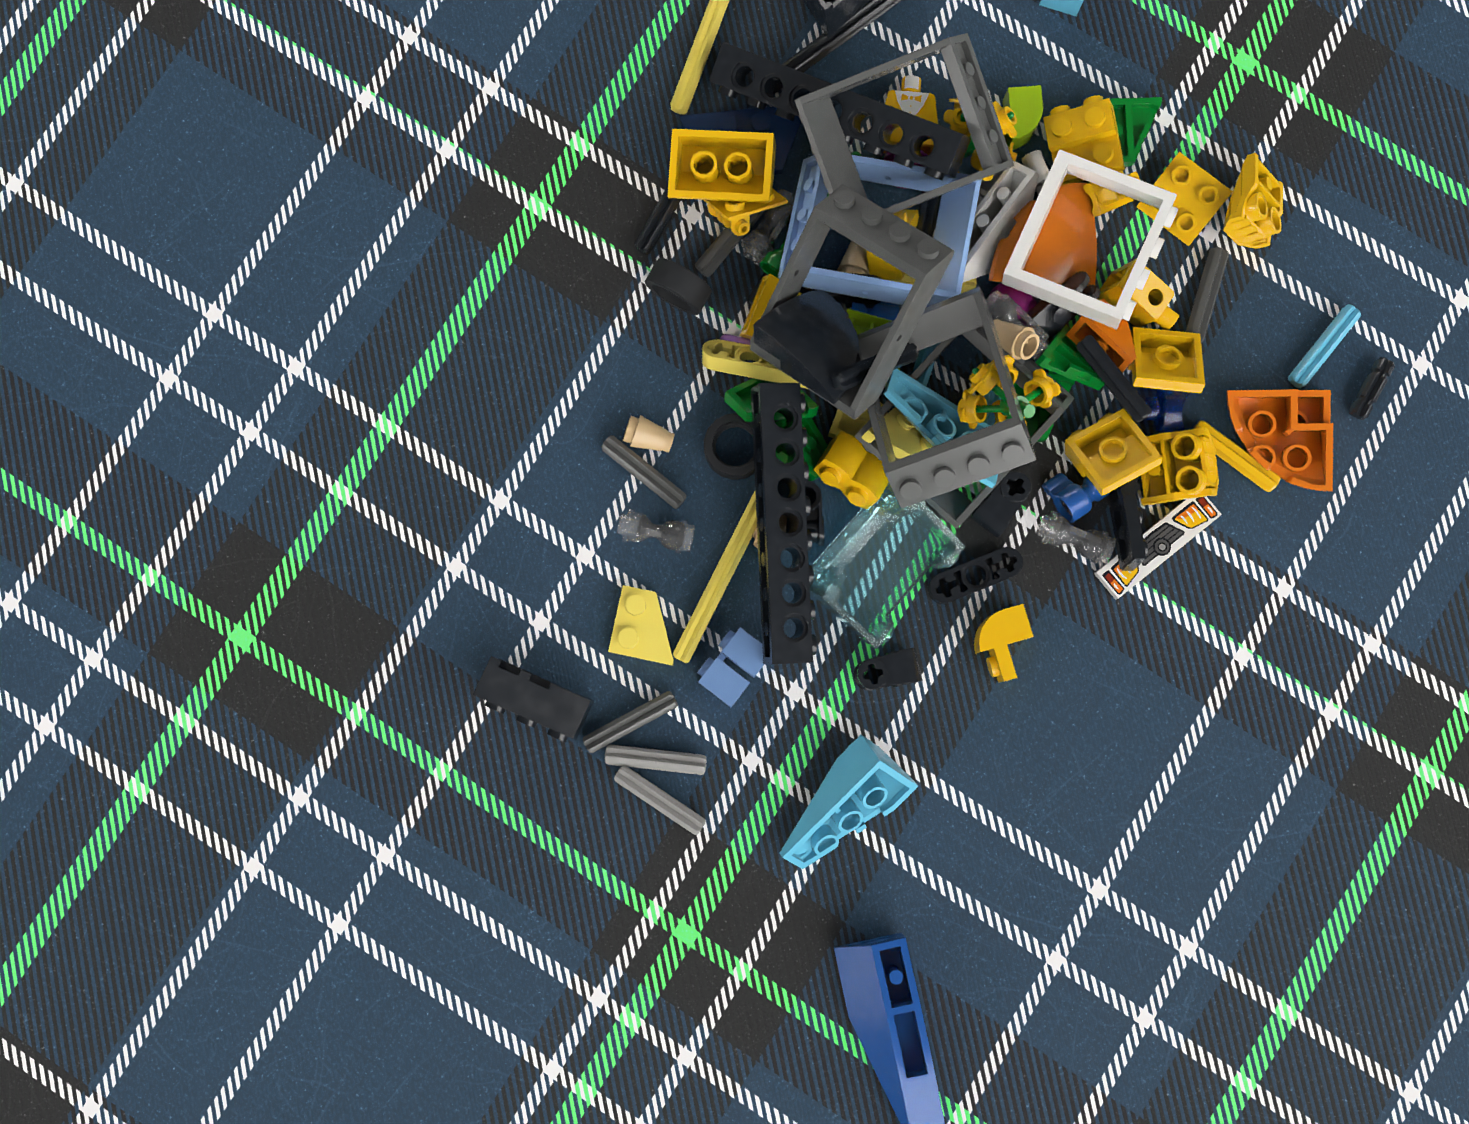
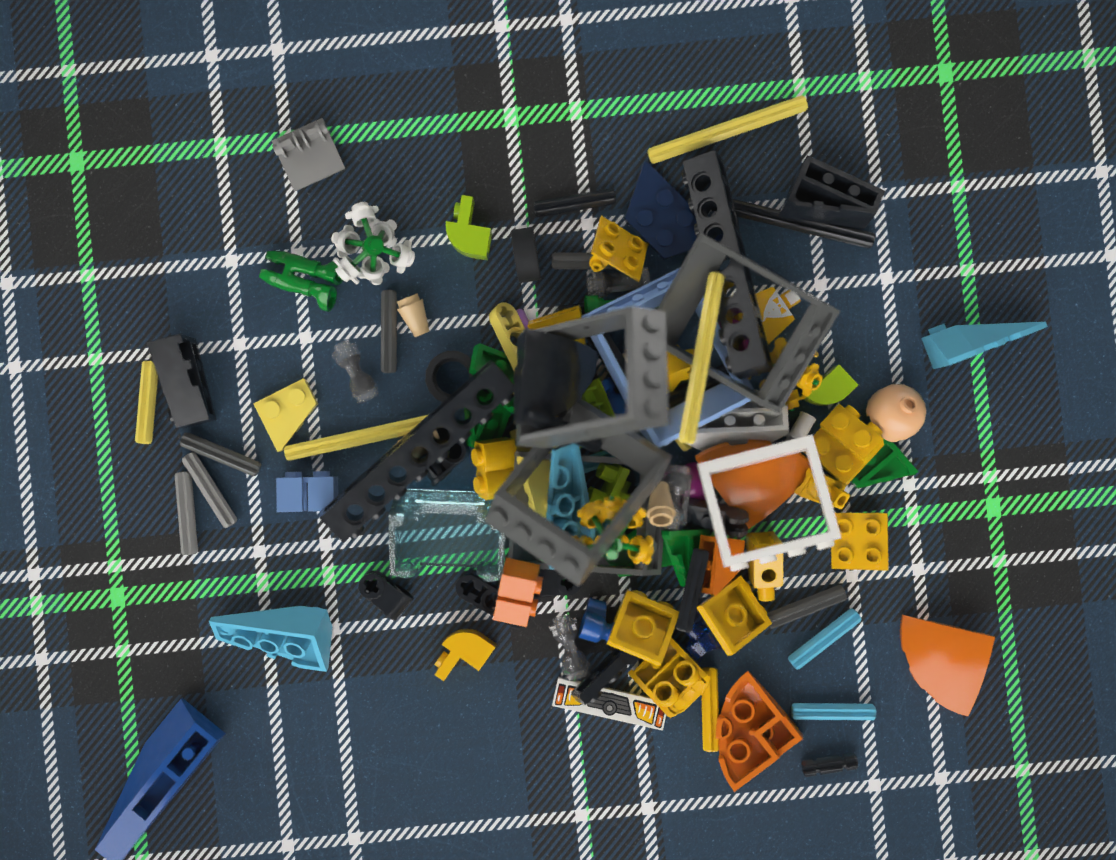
camera: 55 degrees right, 5 degrees up
(418, 414) = (308, 154): none -> light grey hinge
(523, 752) = (146, 403): none -> light yellow axle
(525, 523) = (287, 281): none -> green piece
(554, 413) = (378, 235): none -> white plant
(615, 331) = (466, 238): none -> lime brick
(721, 165) = (625, 219): yellow slope -> none
(910, 191) = (701, 358): none -> light yellow axle
(952, 373) = (614, 485): none -> lime hips
(993, 543) = (517, 591): none -> piece
(1091, 70) = (897, 411): none -> light nougat cylinder
(1249, 301) = (824, 638): none -> medium azure axle
(1254, 206) = (891, 592): yellow slope -> none
(1356, 208) = (946, 661): none -> orange brick

